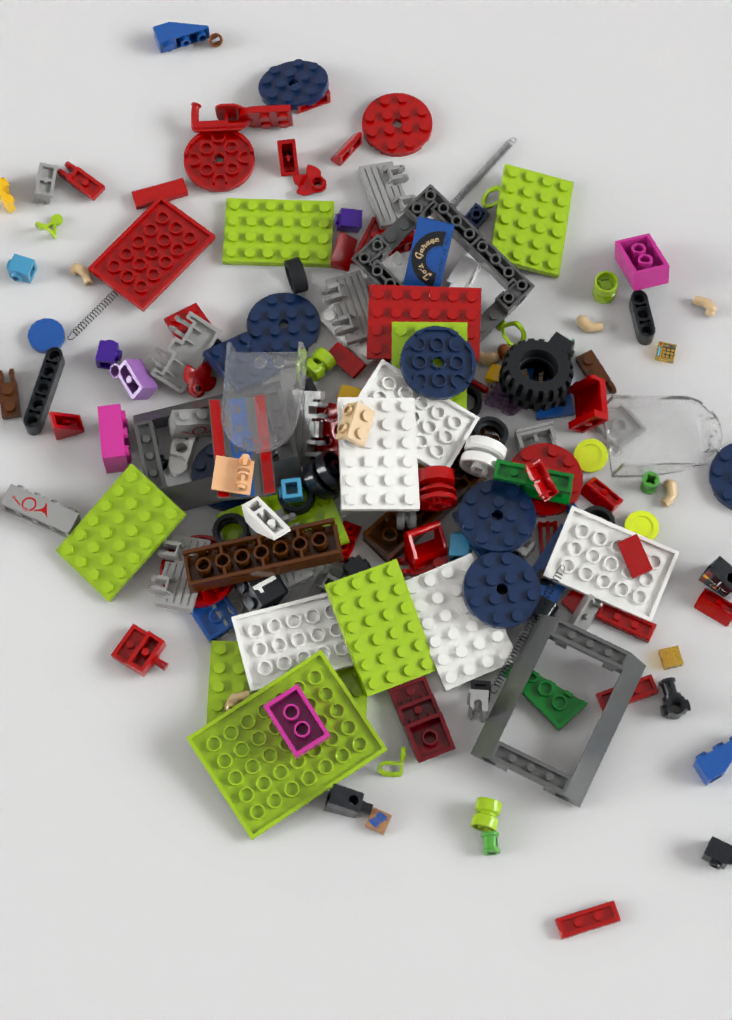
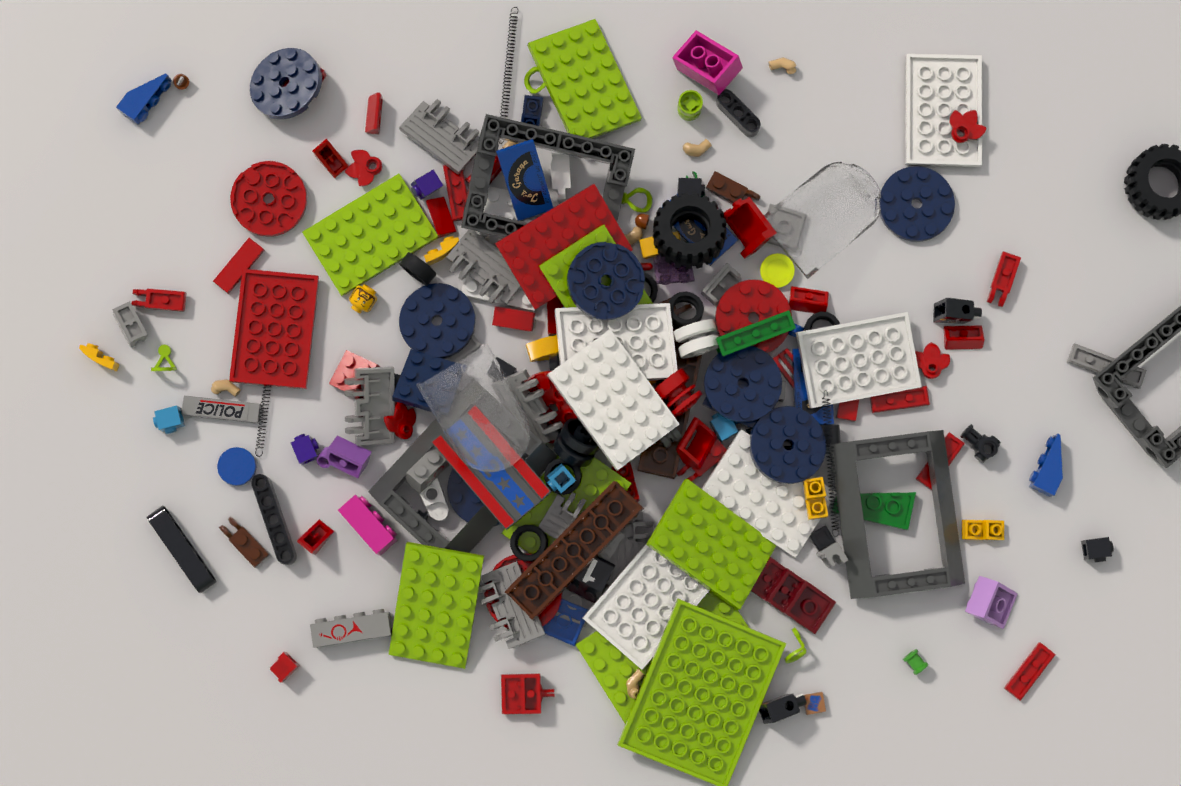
camera: 35 degrees left, 15 degrees up
(66, 287) = (221, 409): none -> light grey tile
(233, 474) = (504, 500): light nougat hinge -> none
(237, 273) = (363, 298): none -> yellow head
(253, 116) = (265, 143): red plate -> none
(264, 519) = (559, 522): white slope -> none
(297, 721) = (703, 675): dark pink brick -> none
(318, 277) = (434, 256): none -> yellow slope
(319, 363) = (495, 332): lime wheel -> none
(355, 423) = (581, 390): tan bracket -> none
(355, 564) = (654, 502): black brick -> none
(402, 140) = (405, 79): red plate -> none
(487, 811) = (898, 641): lime wheel -> none
(495, 649) = (815, 498): none -> yellow slope
(542, 480) = (763, 332): red hinge -> none
(585, 612) = (863, 419): light grey hinge -> none
(592, 837) = (991, 602): none -> lavender slope
(626, 774) = (983, 529): none -> yellow slope
(634, 556) = (876, 342): red slope -> none
(642, 524) = (859, 306): neon yellow piece -> none
(650, 477) = (847, 263): bright green bush -> none
(665, 352) = (777, 131): clear yellow tile -> none
(670, 657) = (955, 406): clear yellow tile -> none
(672, 492) = (864, 258): tan arm -> none
(676, 606) = (932, 358): none -> red plate

